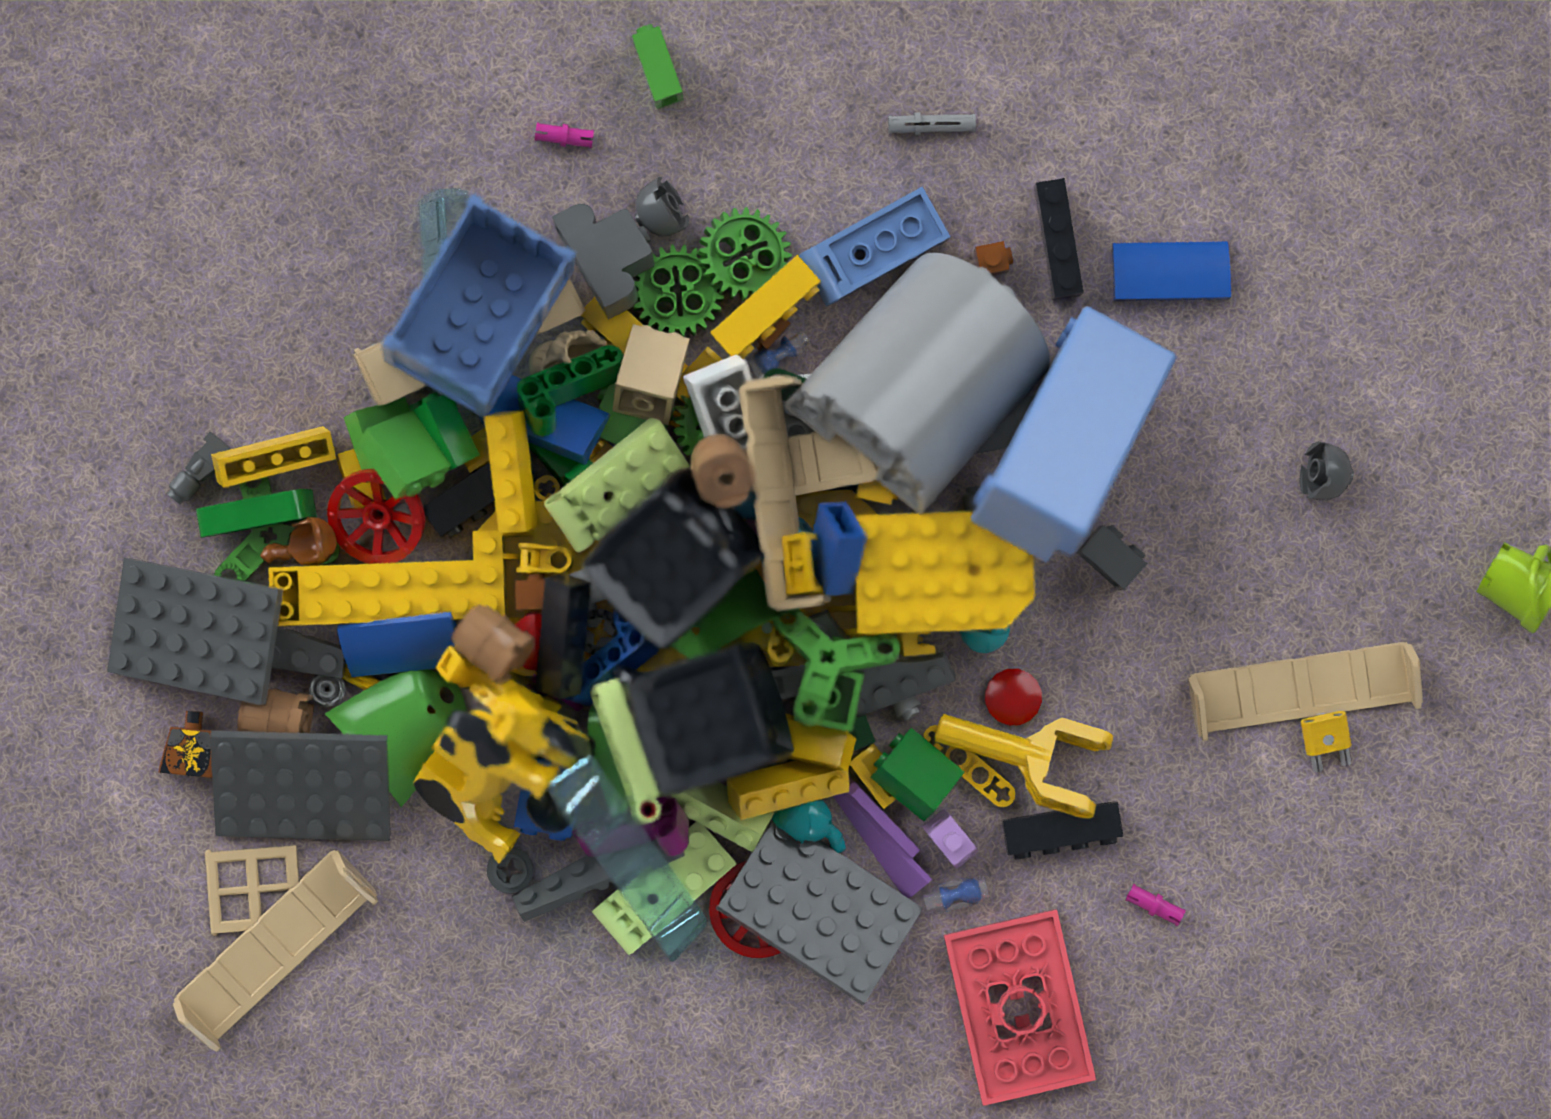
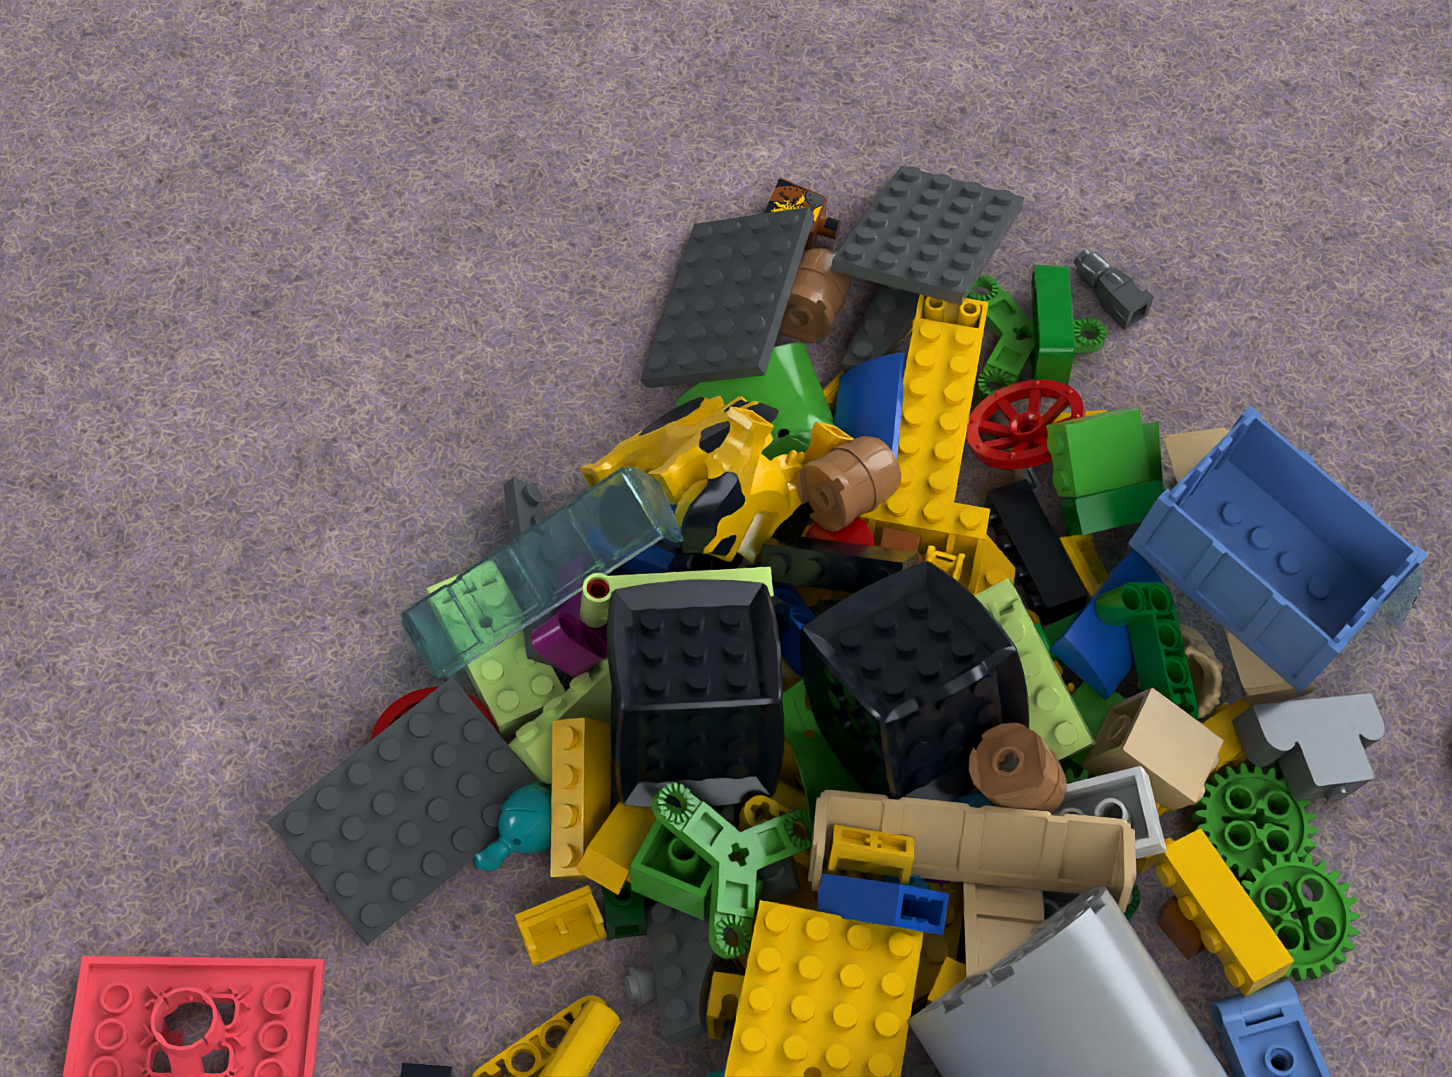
camera: 100 degrees right, 30 degrees down
(253, 888) = (624, 249): tan window -> none
(272, 948) = (551, 245): tan piece -> none
(273, 456) = (1114, 341): yellow brick -> none
(310, 544) = (1003, 360): dark orange piece -> none
(324, 698) = (828, 347): light grey plate -> none
(511, 471) = (1057, 557): yellow brick -> none
(517, 881) = (562, 479): dark grey gear -> none
(659, 209) = (1375, 821): dark grey cylinder -> none
(791, 345) = (1161, 946): clear piece -> none
(884, 839) = (474, 921): medium lavender wedge -> none
(916, 773) = (549, 968): green brick -> none
(950, 838) = (446, 996): lavender torso -> none
(971, 891) = (372, 1009): clear piece -> none

